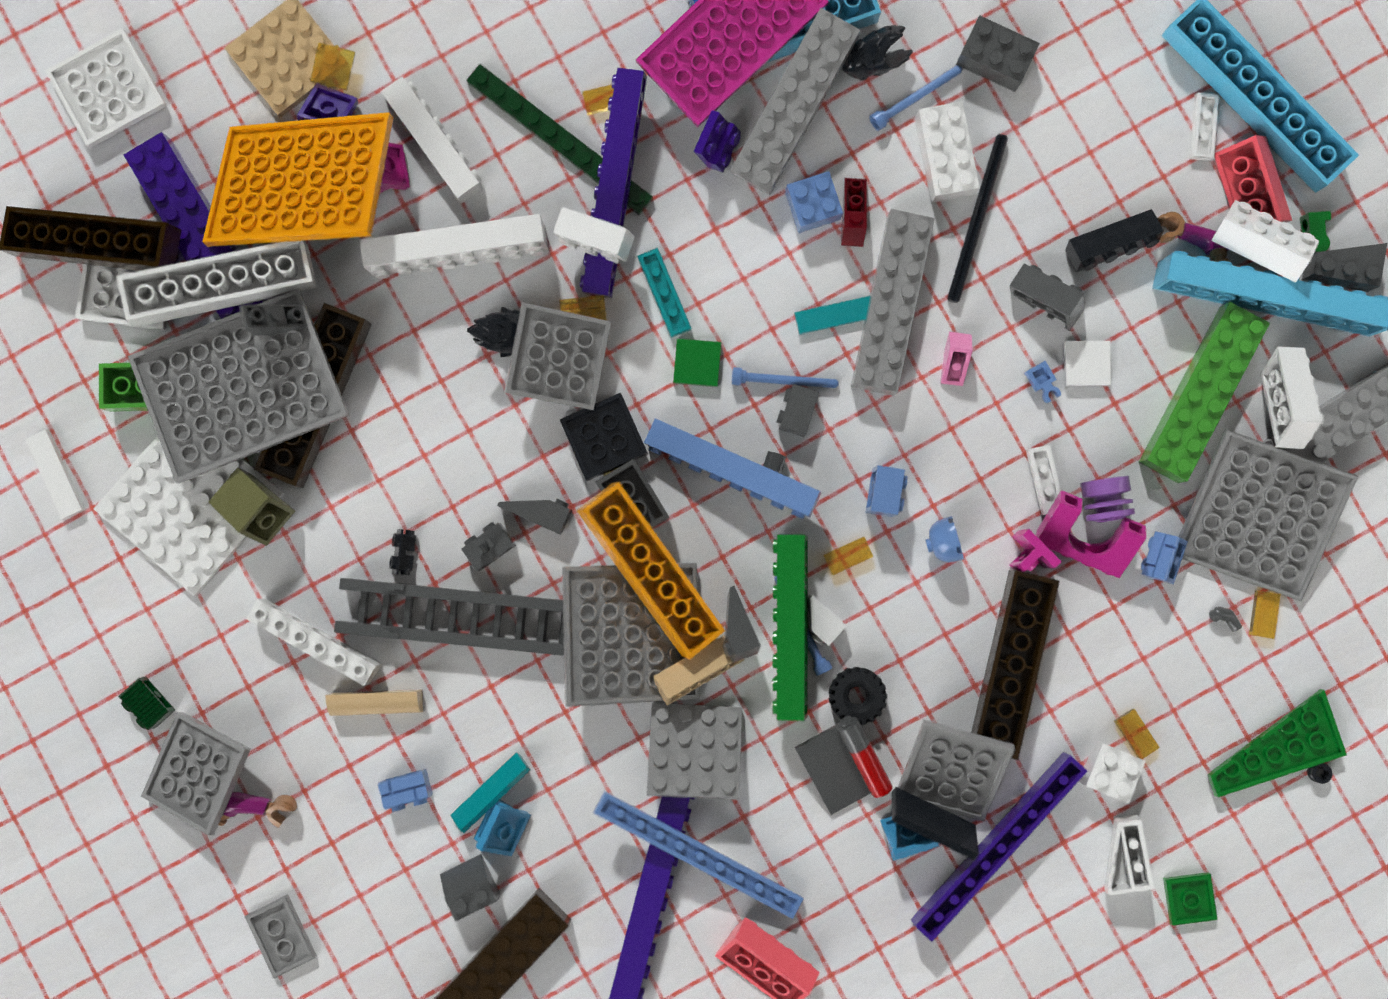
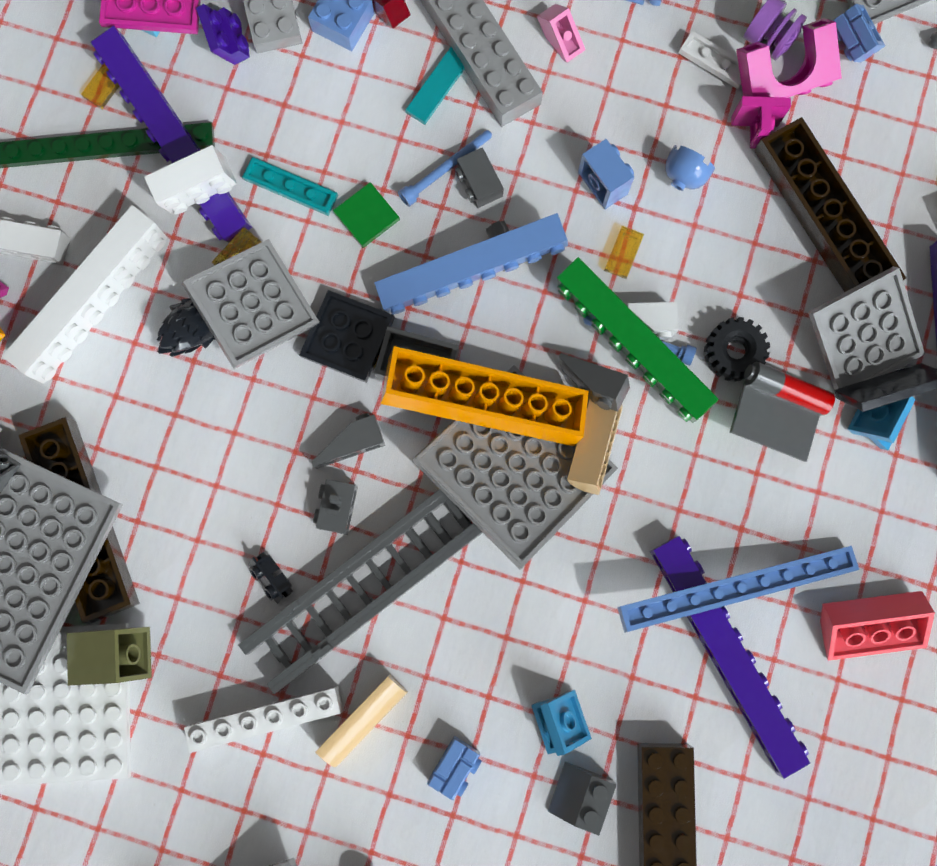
camera: 45 degrees left, 5 degrees down
(490, 792) = (525, 703): teal tile -> none
(695, 751) = (656, 511): light grey plate -> none

